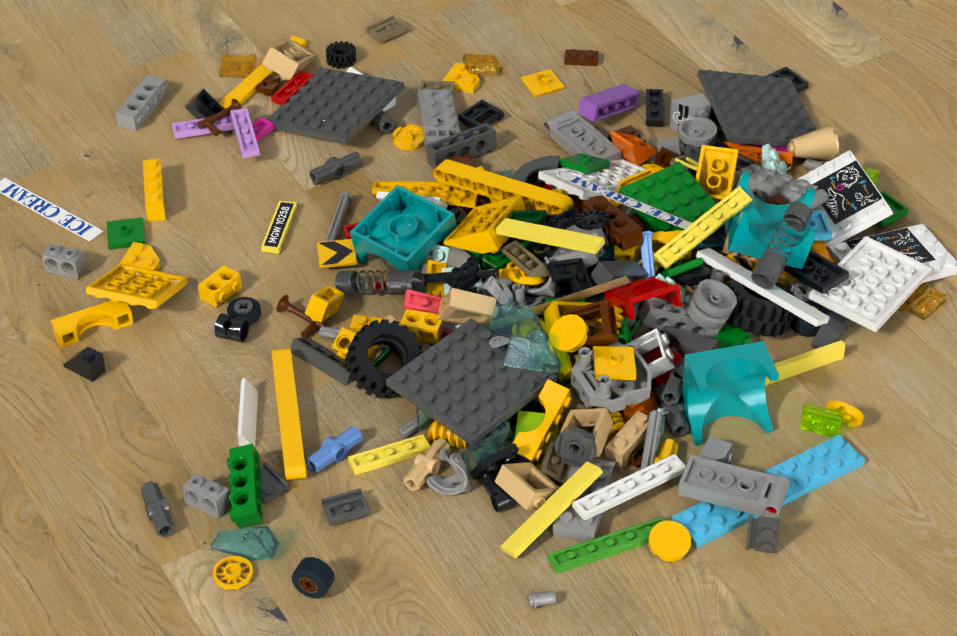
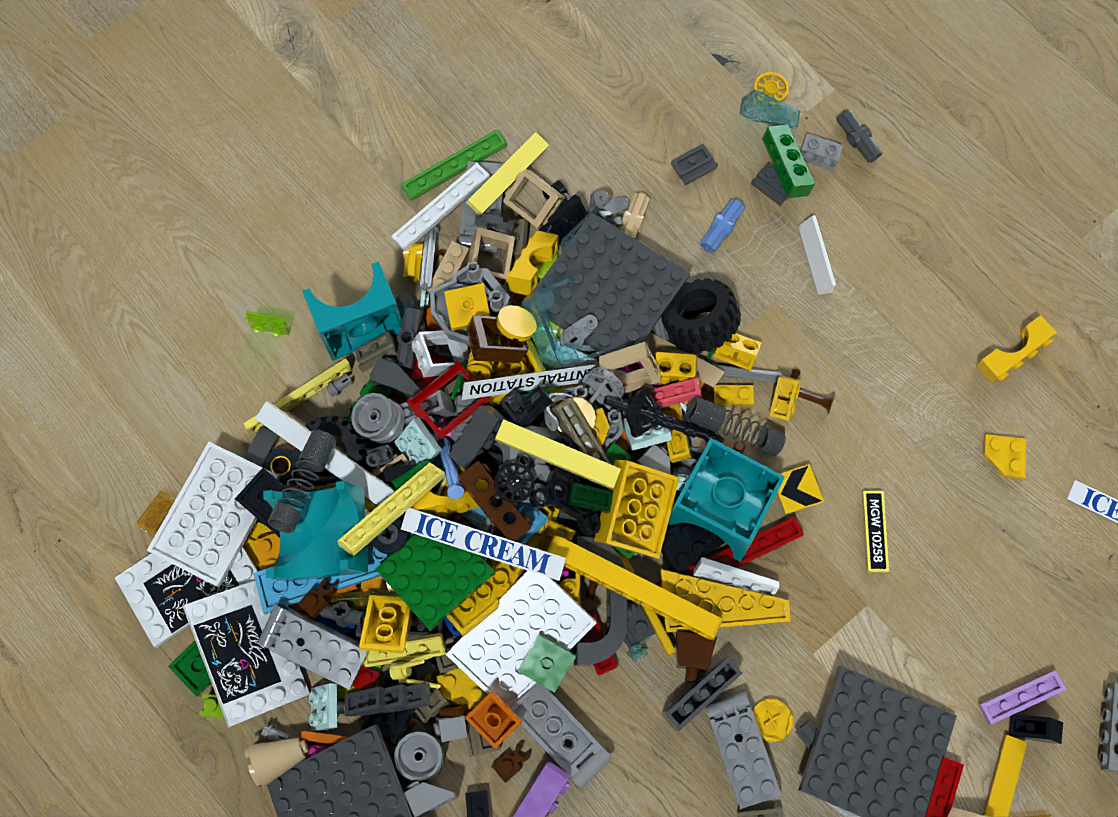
camera: 170 degrees right, 30 degrees up
(64, 261) = (1084, 429): light grey brick -> none
(87, 364) = (999, 294): black slope -> none
(125, 232) = (1040, 494): green plate -> none
(137, 286) = (989, 394): yellow plate -> none
(153, 190) = (1046, 579): yellow arch -> none
(207, 122) = (1022, 692): reddish brown piece -> none
(220, 286) = (907, 422): yellow brick -> none
(231, 327) = (871, 359): black wheel -> none
(245, 133) = (969, 674): lavender plate -> none
(246, 308) = (864, 397): black wheel -> none
(262, 127) = (960, 695): dark pink plate -> none
(269, 86) = (975, 790): reddish brown plate -> none
(288, 414) = (780, 264): yellow beam -> none
(313, 577) = (699, 77): black wheel -> none
(321, 359) = (771, 345): dark grey slope -> none
(335, 168) = (842, 639): dark grey piece -> none
(344, 200) = (813, 551): light grey axle -> none
(388, 454) = (675, 231): light yellow tile -> none
(479, 111) = (698, 777): black plate -> none
(541, 598) = (504, 98): light grey pin -> none
(669, 541) = (402, 170): yellow tile -> none
(717, 450) = (362, 271): light grey slope -> none
(733, 487) = (357, 219): light grey hinge -> none
(763, 534) = (318, 176): dark grey plate -> none
(804, 471) = (316, 246): medium azure plate -> none
(852, 415) = (246, 330): yellow tile -> none

